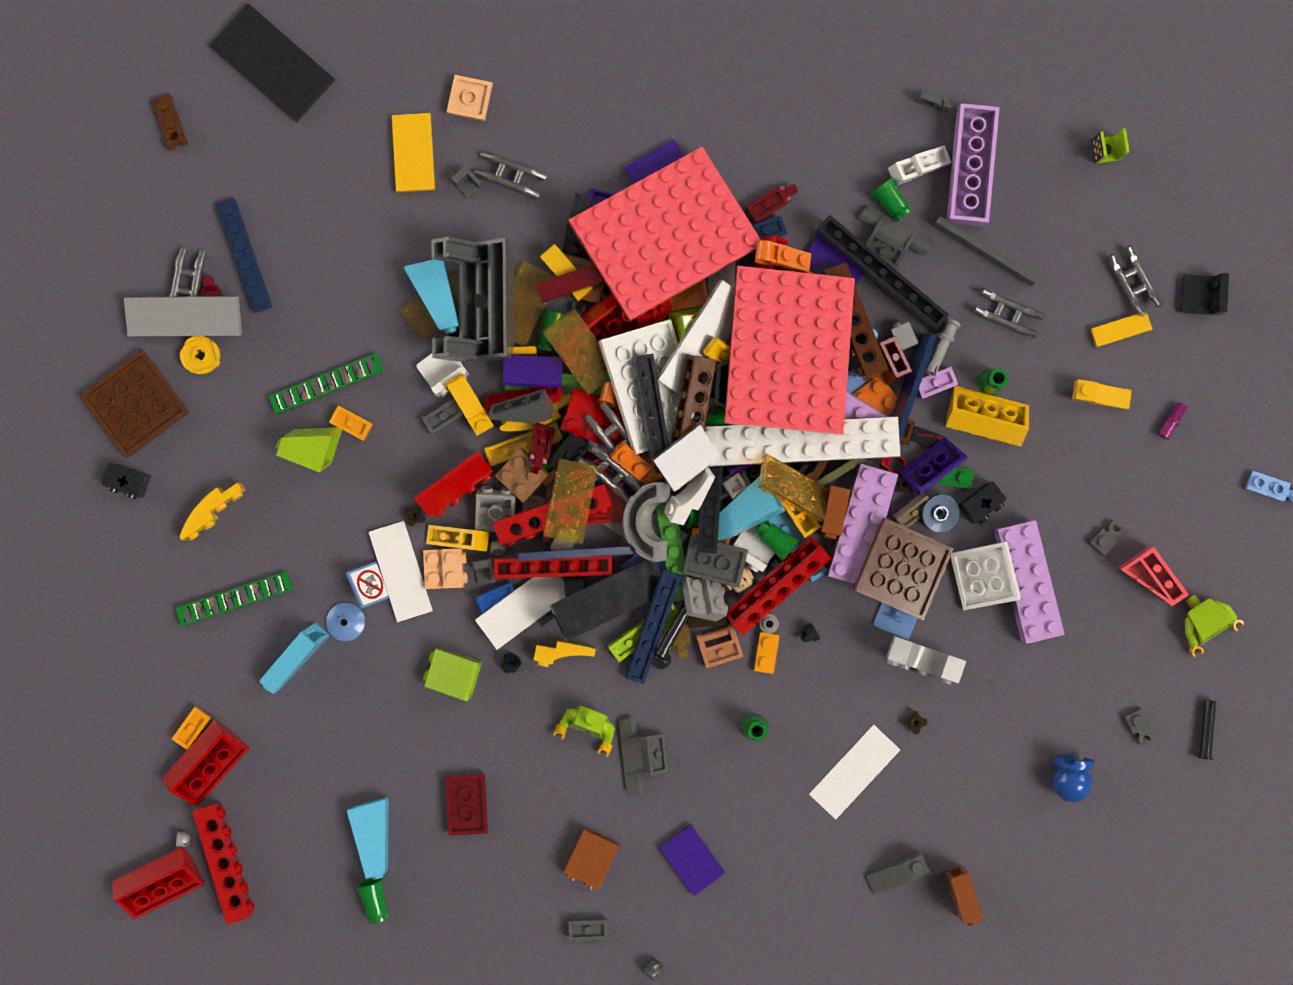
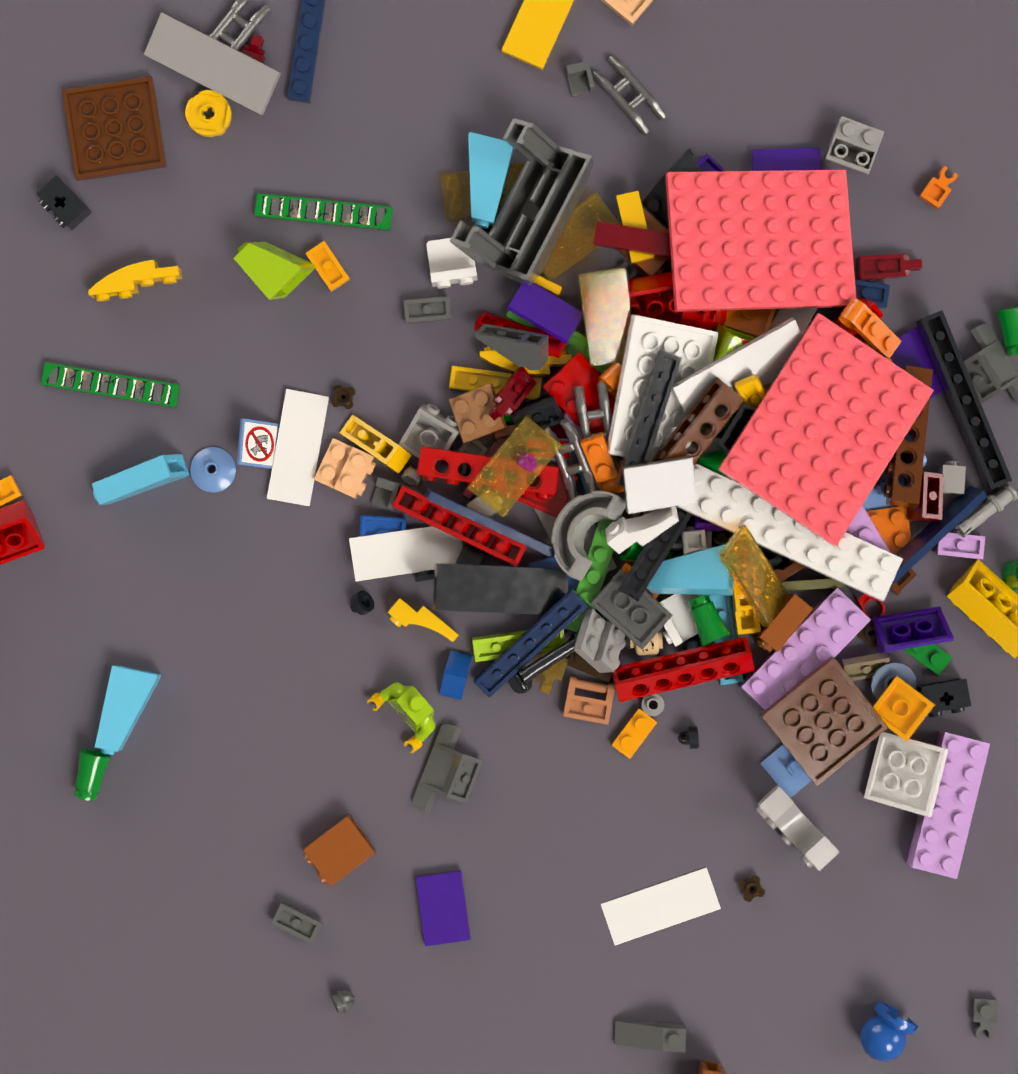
camera: 25 degrees right, 0 degrees up
(452, 674) = (295, 582): lime slope -> none
(454, 485) = (401, 386): red slope -> none
(466, 804) = (239, 725): dark red plate -> none
(469, 404) = (461, 310): yellow slope -> none
(547, 319) = (590, 264): green plant -> none
(578, 493) = (527, 462): none -> magenta plate
(609, 679) = (455, 675): none -> blue slope
(699, 124) = (854, 145): none -> light grey slope
(751, 721) = (575, 798): green plant -> none
(779, 125) = (937, 190): none -> orange plate
(925, 437) = (918, 595): black sticker -> none
(957, 528) = (902, 708): none -> light orange plate

